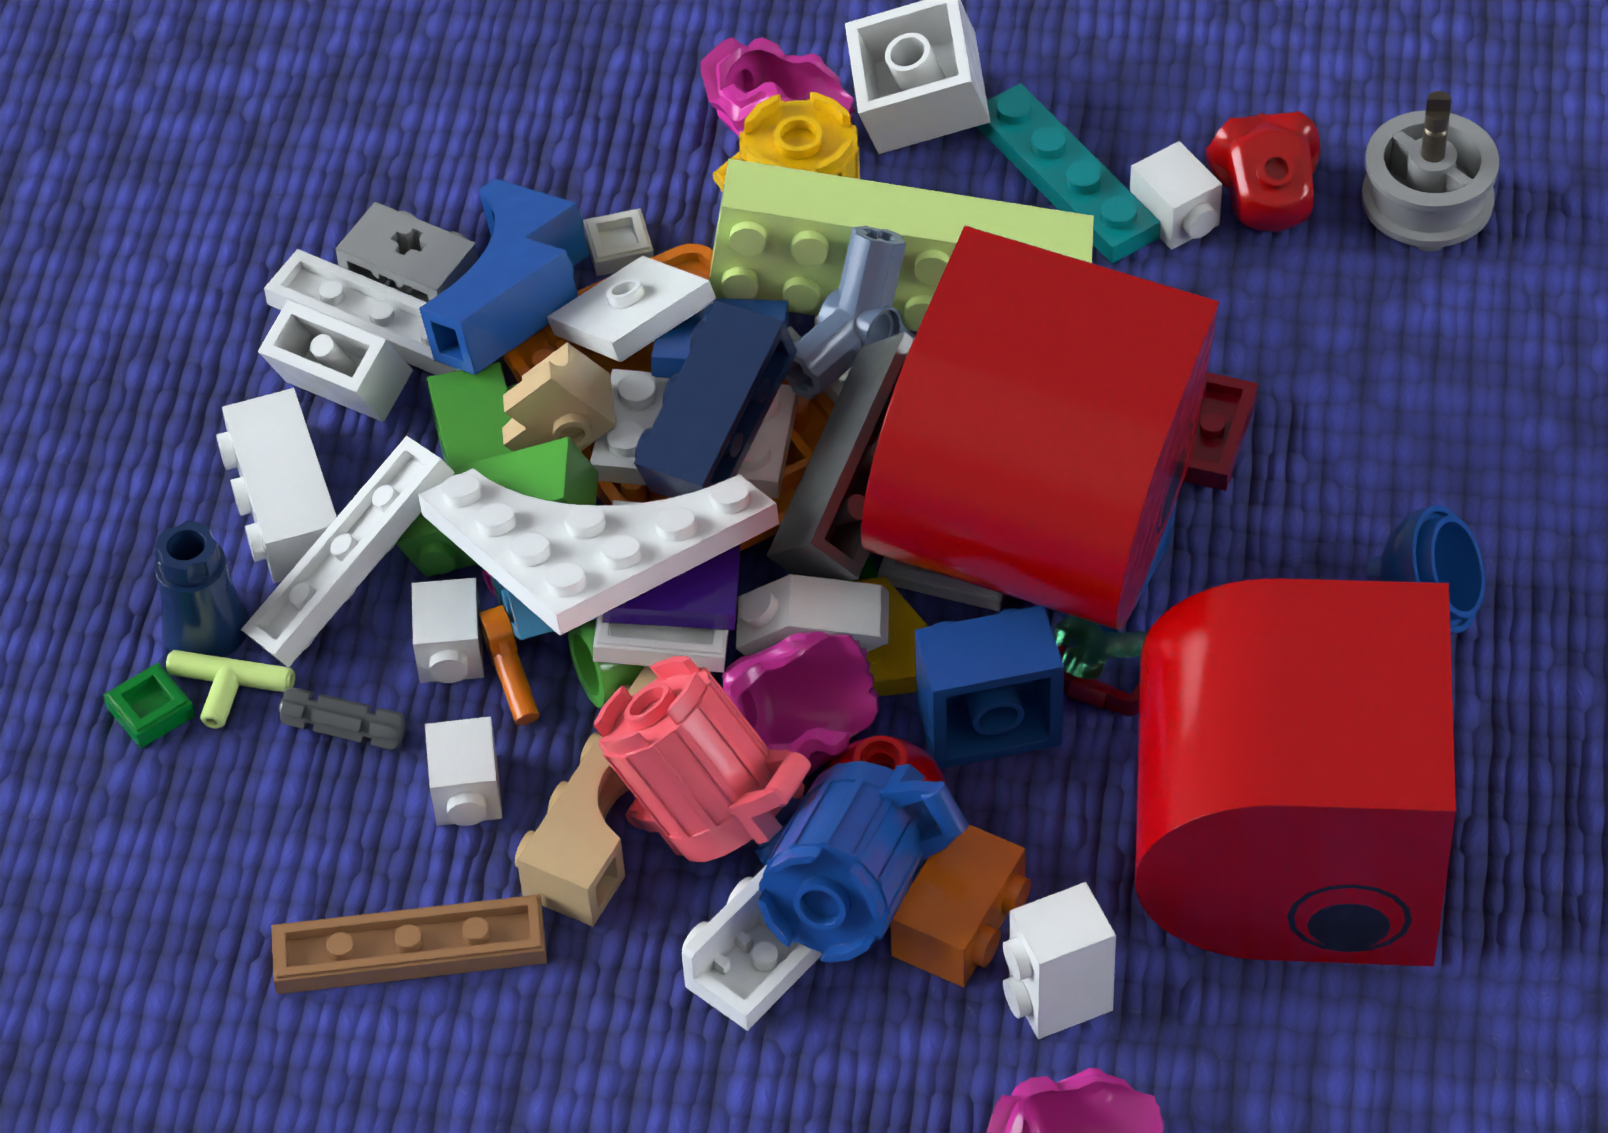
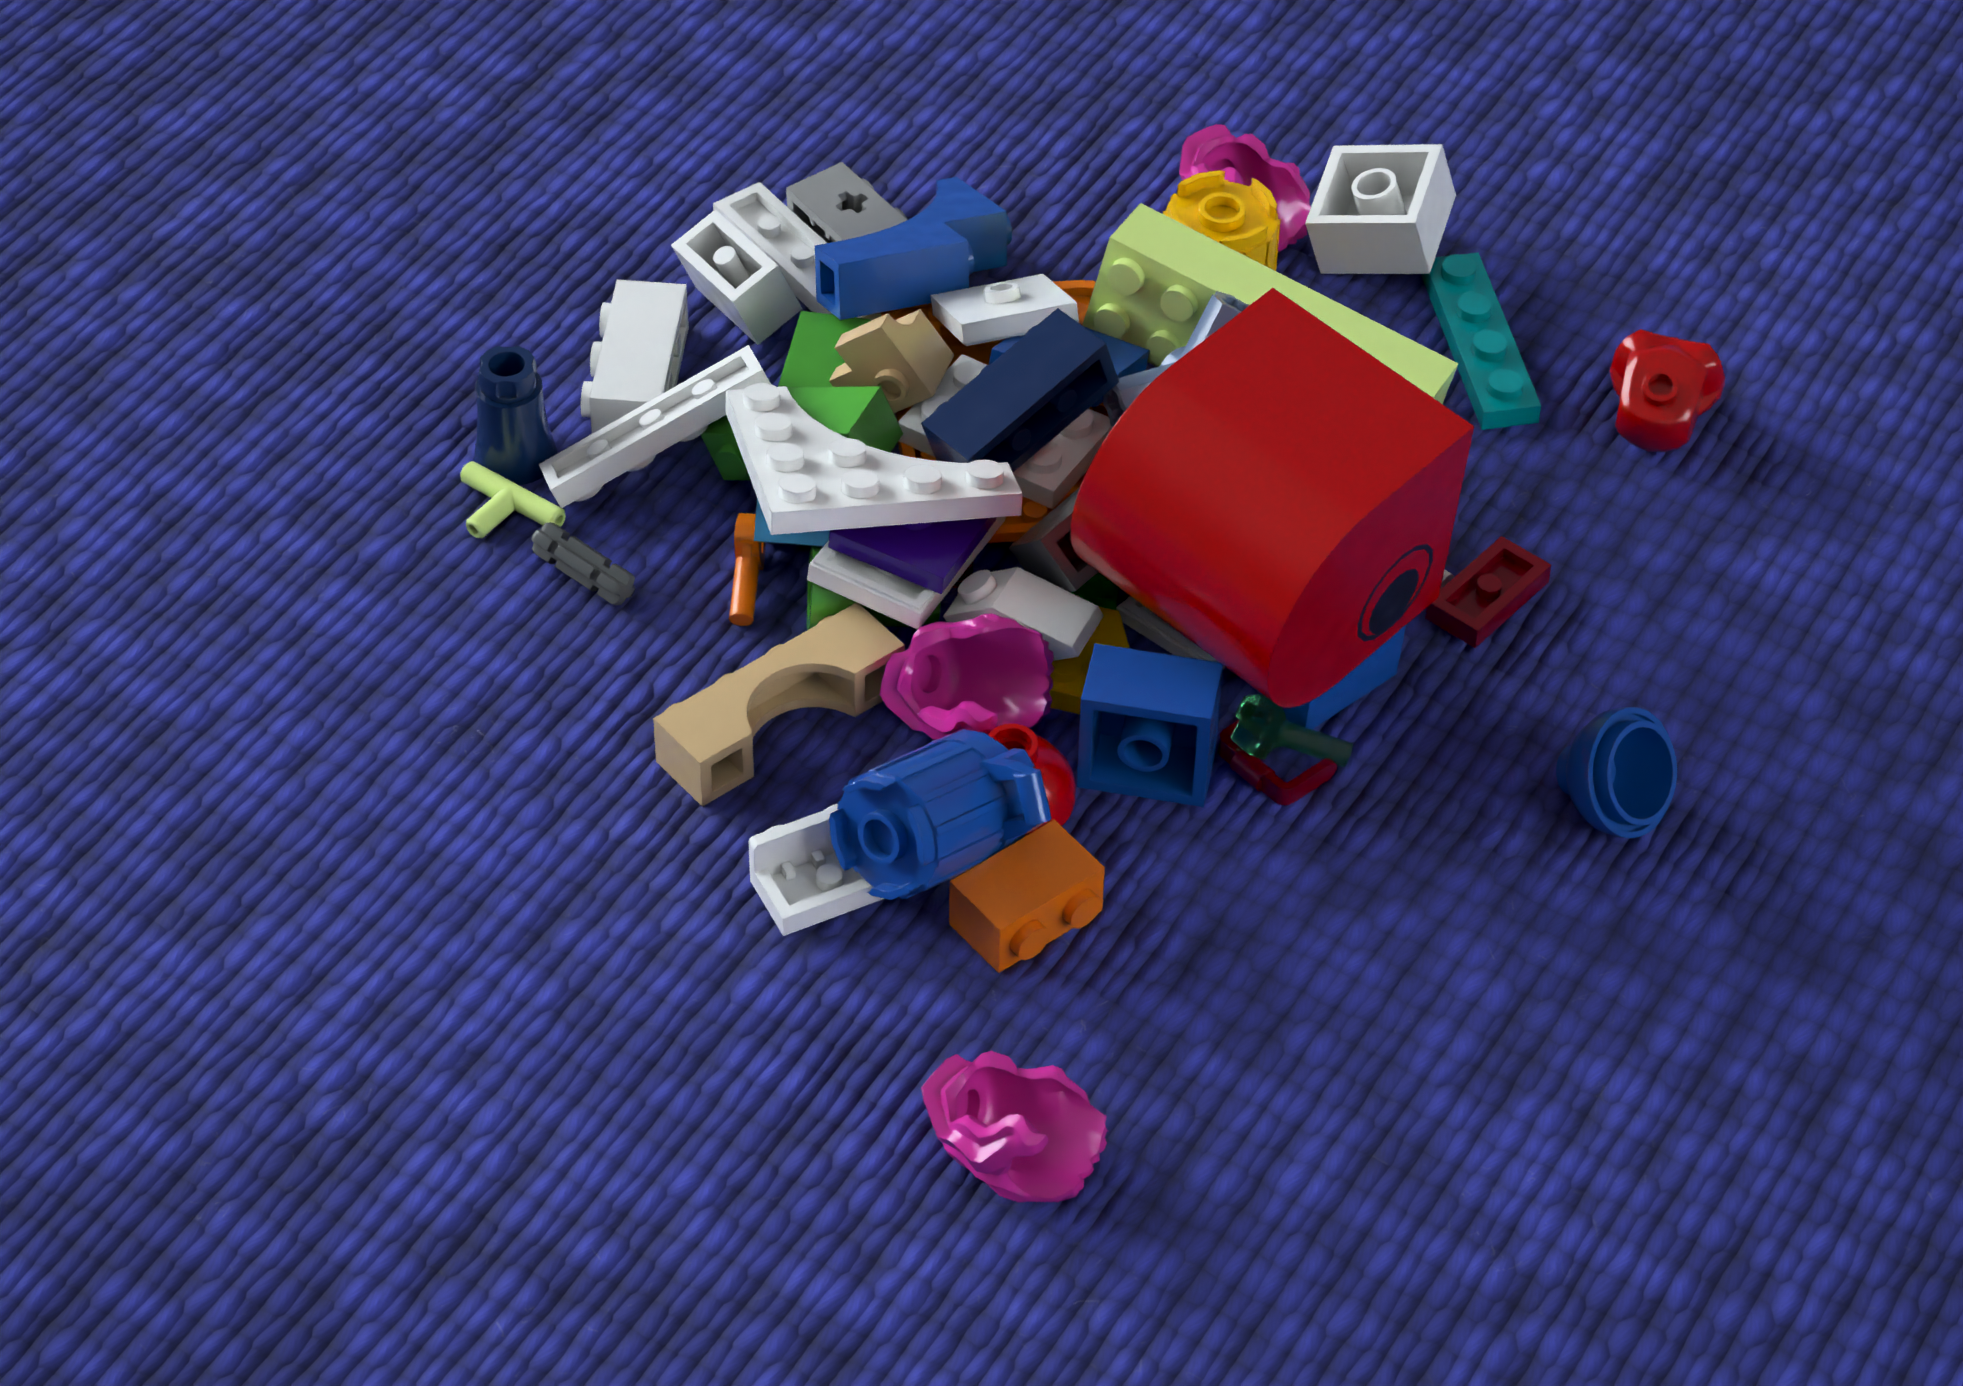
camera: 20 degrees right, 5 degrees down
(149, 705) = (430, 499): green tile -> none
(408, 944) = (535, 762): medium nougat tile -> none
(447, 630) = (705, 520): white brick -> none
(463, 771) = (657, 638): white brick -> none
(617, 240) = (1046, 258): white tile -> none
(696, 763) = (842, 685): coral container -> none
(1060, 961) = (1081, 970): white brick -> none
(1178, 194) = (1568, 386): white brick -> none
(1298, 770) = (1379, 883): red brick -> none
(1430, 176) = (1813, 444): light grey wheel -> none

